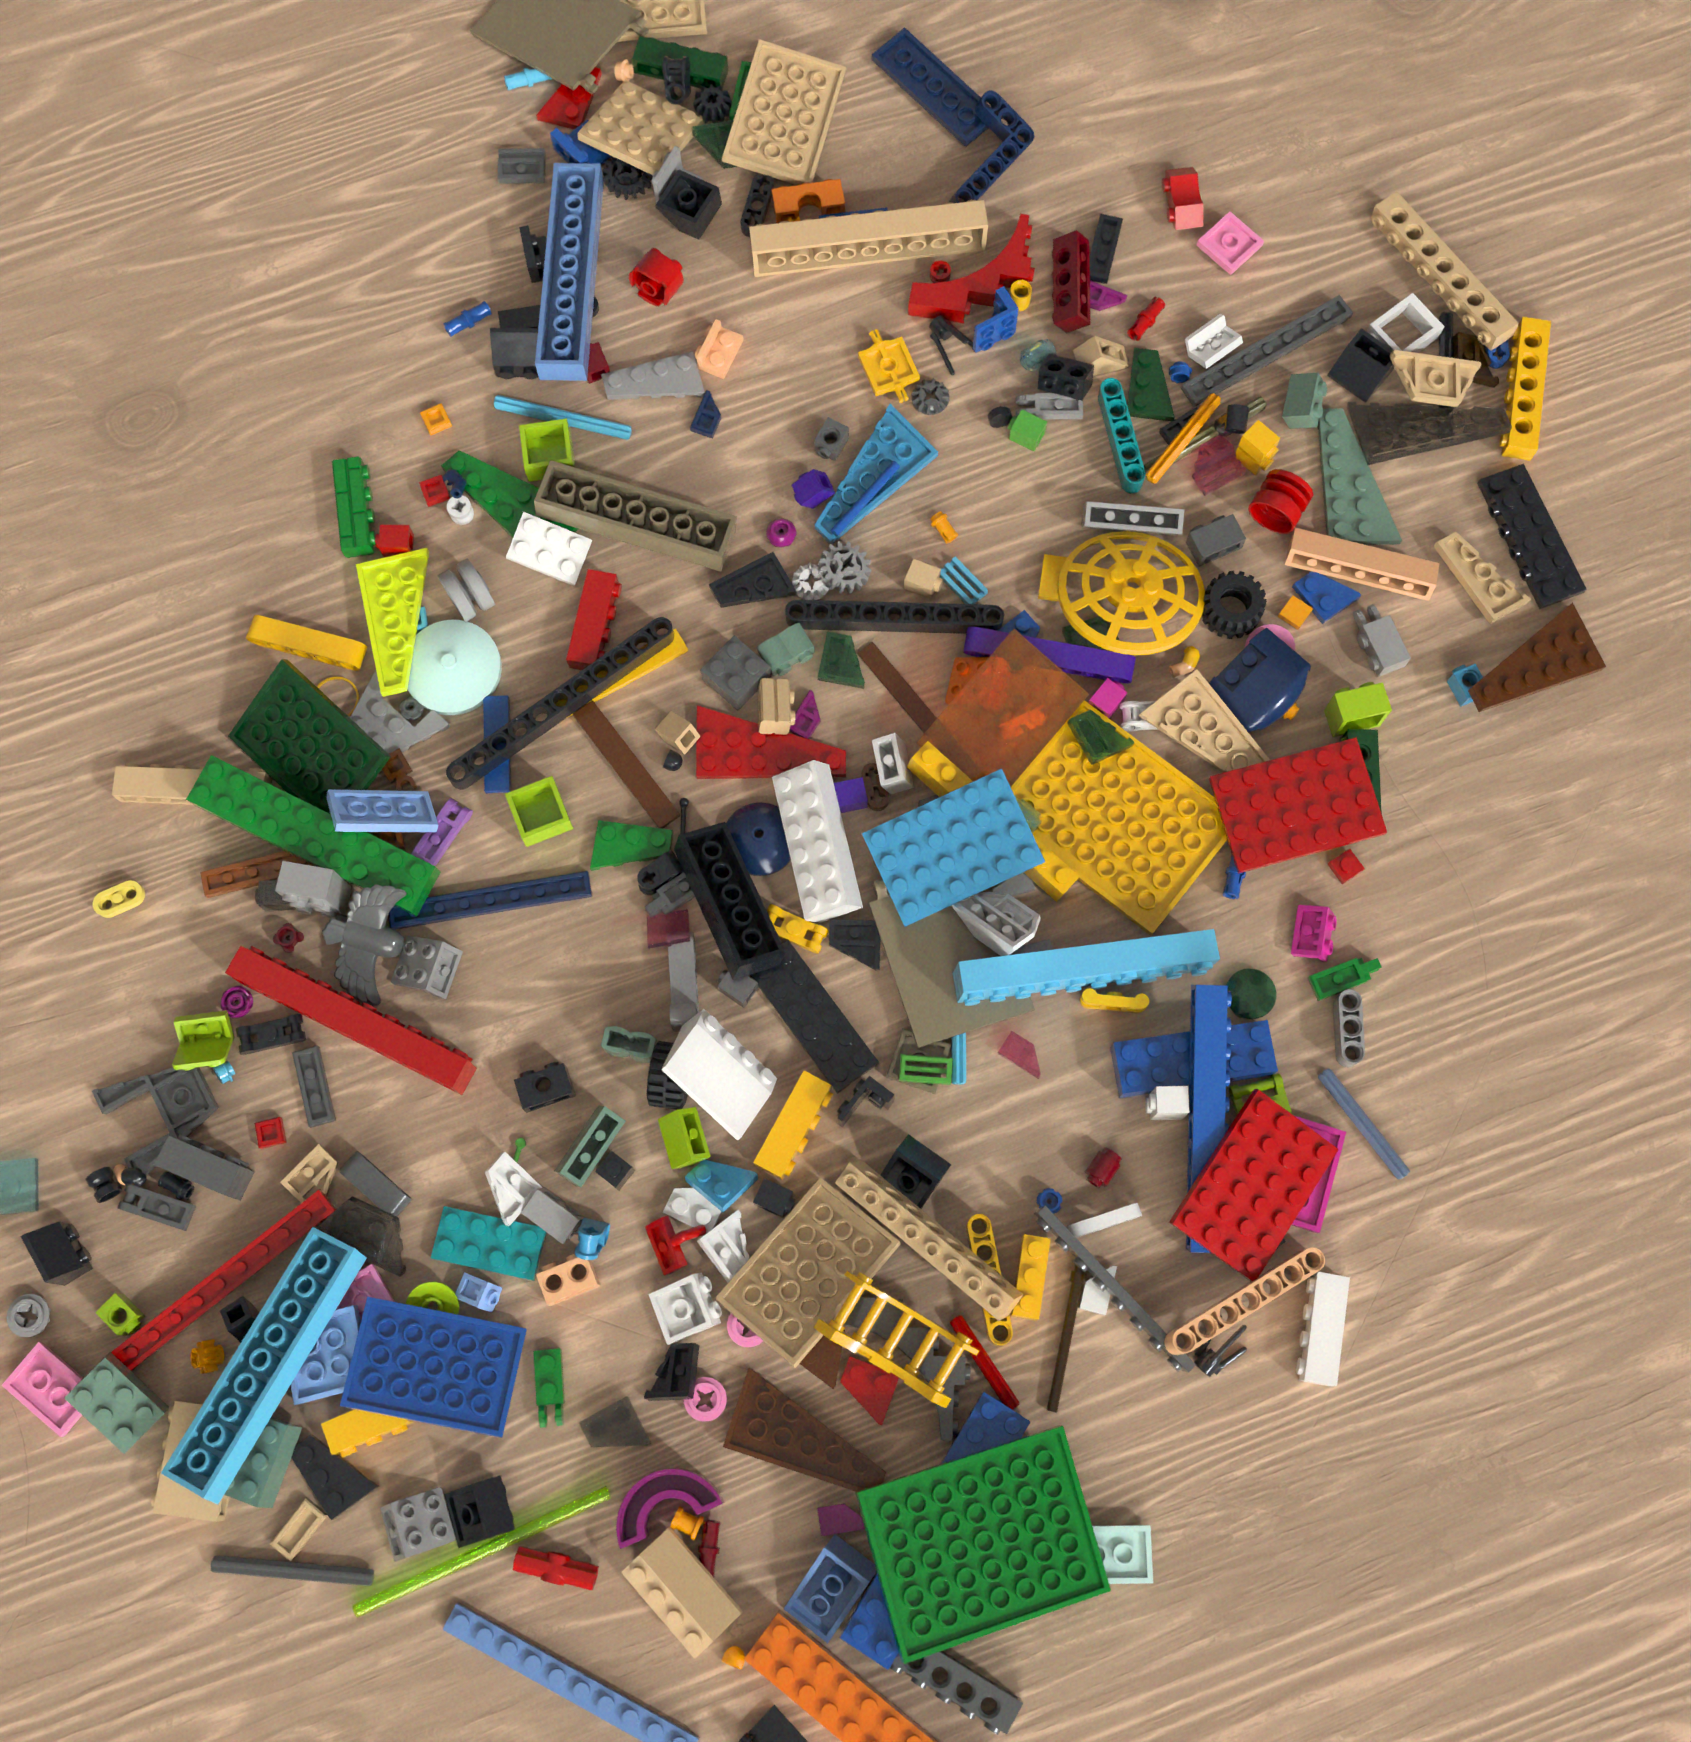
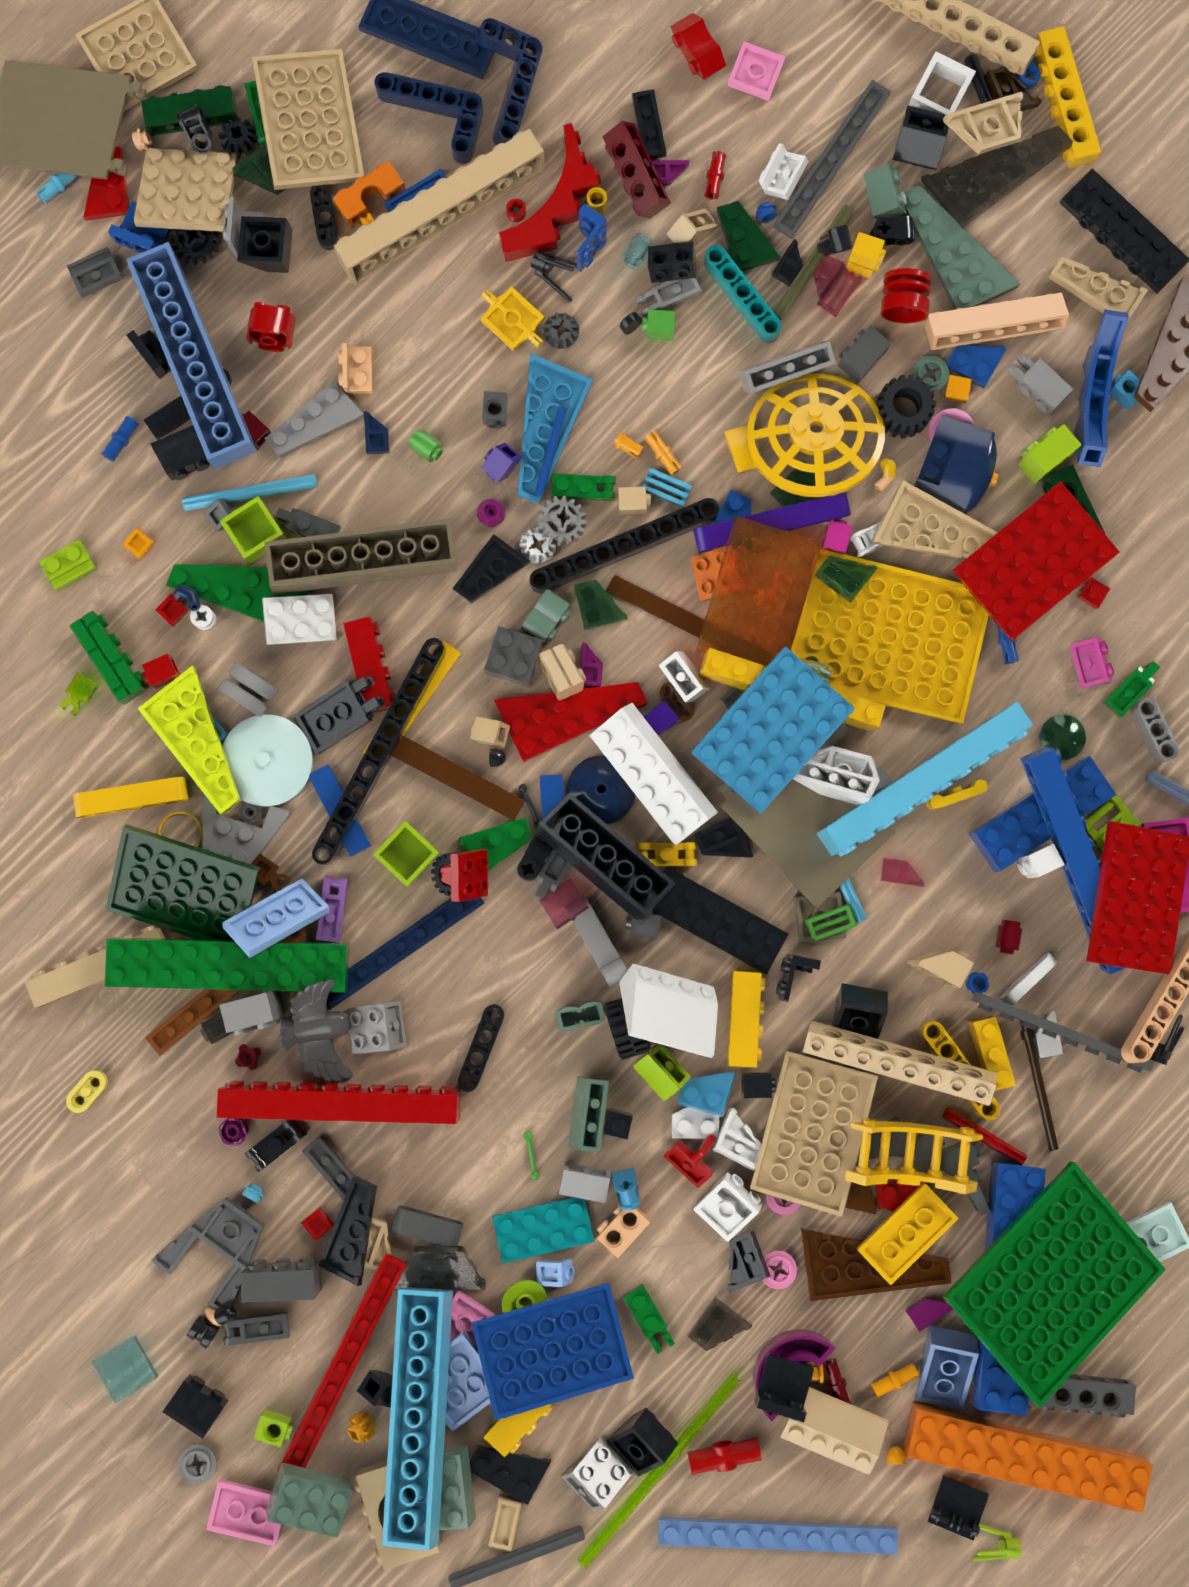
camera: 30 degrees left, 10 degrees up
(179, 1187) = (270, 1306): black pin -> none
(202, 1040) = (223, 1178): lime bracket -> none
(292, 1157) = (350, 1235): none -> black wing
(311, 525) = (80, 690): none -> clear neon green plate
(360, 410) = (67, 565): none -> lime plate
(510, 1187) = (540, 1177): white wing -> none
(521, 1037) = (478, 1046): none -> black beam
(523, 417) = (216, 512): none -> dark grey plate
(541, 651) = (338, 714): none -> black tile
(560, 1088) = (519, 1095): black brick -> none
(583, 853) = (462, 874): none -> red plate
(597, 463) = (306, 523): none -> dark grey hinge
(649, 1515) = (784, 1387): none -> black bracket
(711, 813) = (551, 792): none -> blue tile
(749, 444) = (426, 445): none -> bright green brick
(771, 1575) = (894, 1380): none -> light orange pin
(854, 1421) = (907, 1233): none -> yellow plate
(881, 546) = (583, 487): none -> green plate
(912, 150) = (437, 105): none -> dark blue beam
(974, 548) = (663, 452): none -> light orange pin
(1016, 1158) = (945, 967): none -> tan slope
(1183, 438) = (797, 274): light orange axle -> none
(1281, 579) = (931, 363): none -> sand green gear
(1299, 439) = (894, 230): none -> black piece
(1436, 665) = (1095, 393): none -> blue arch

